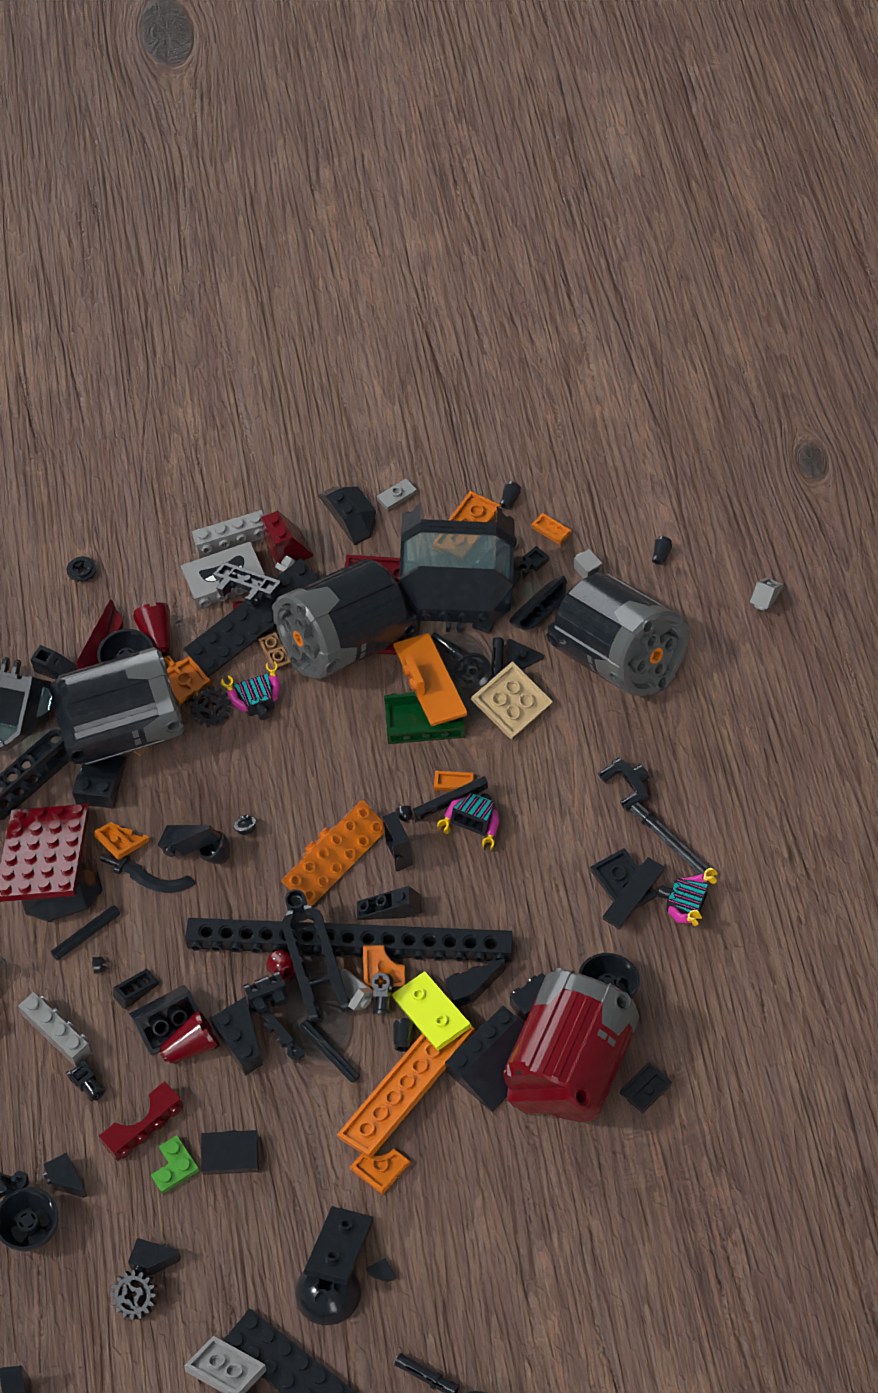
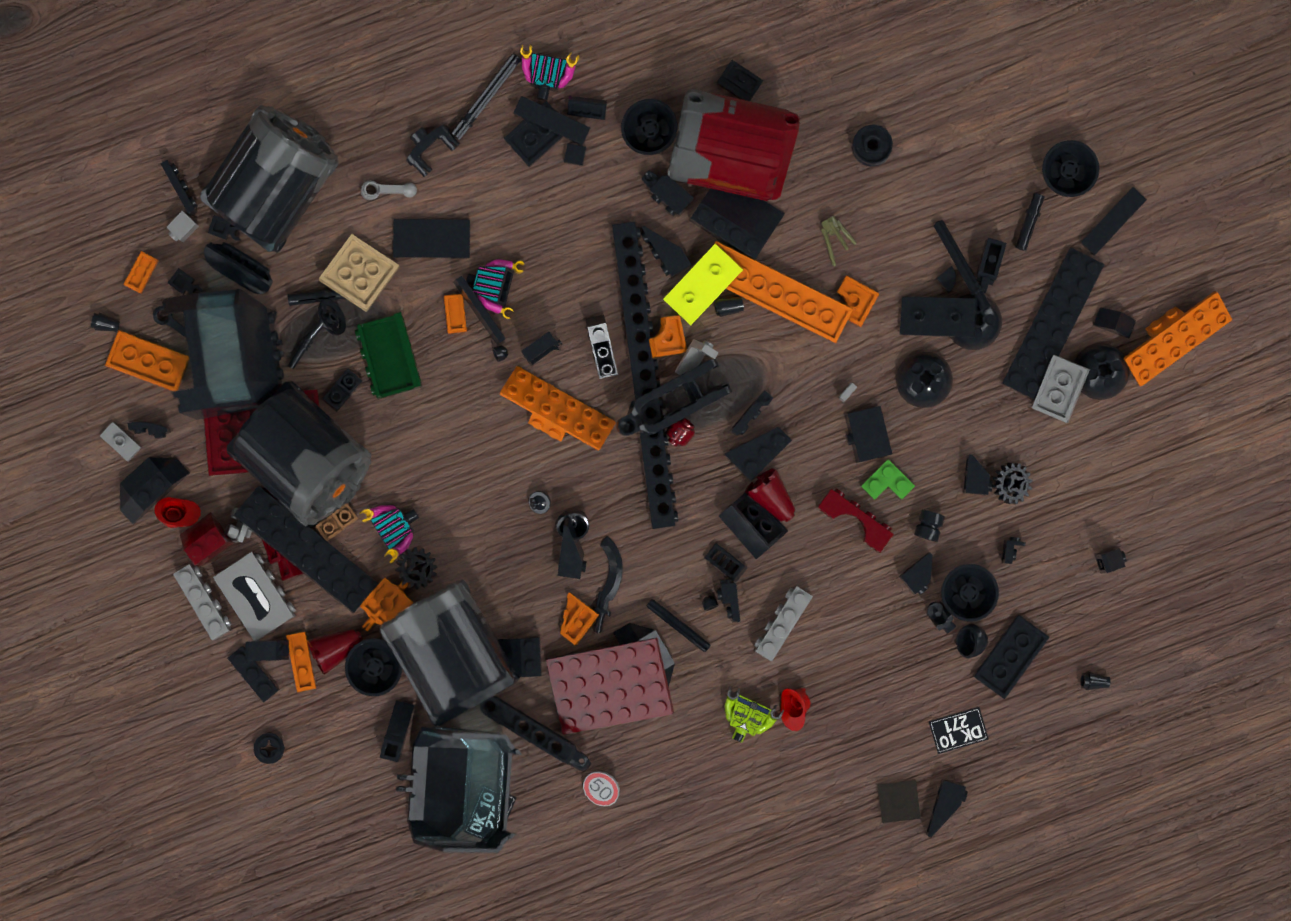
camera: 105 degrees left, 30 degrees up
(60, 1277) = (1009, 552): none -> black bracket
(84, 1079) = (825, 583): black connector -> none
(97, 979) = (728, 594): none -> black plate
(108, 623) = (352, 699): dark red wedge -> none
(114, 1196) = (929, 525): none -> black wheel
(132, 602) = (301, 662): none -> orange plate
(153, 567) = (253, 675): none -> black plate
(169, 573) = (267, 650): none -> black slope
(257, 584) = (266, 576): black hinge -> none
(265, 990) = (714, 437): black hips -> none
(276, 1237) = (913, 384): none -> black piece
(280, 1138) = (847, 392): none -> light grey tile
(318, 522) = (177, 512): none -> red piece
(330, 1051) = (755, 369): black axle -> none
(382, 993) = (694, 331): black connector -> none
(387, 1316) = (990, 262): none -> black hinge
(389, 1283) = (962, 265): none -> black axle
(394, 670) = (342, 390): none -> black slope
(404, 507) = (153, 429): none -> black slope
(429, 679) = (352, 356): orange bracket -> none
(465, 1154) = (832, 227): none -> olive plant
(521, 654) = (300, 277): black piece -> none
(534, 772) = (431, 238): none -> black tile
(552, 1201) = (875, 134): none -> black wheel
(588, 759) = (408, 189): none -> light grey piece
(594, 914) = (575, 154): none -> black tile
(629, 566) = (180, 187): none -> black plate
(642, 931) = (587, 107): none -> black plate
(661, 549) = (148, 156): black cone -> none
(766, 593) = (187, 43): light grey slope -> none

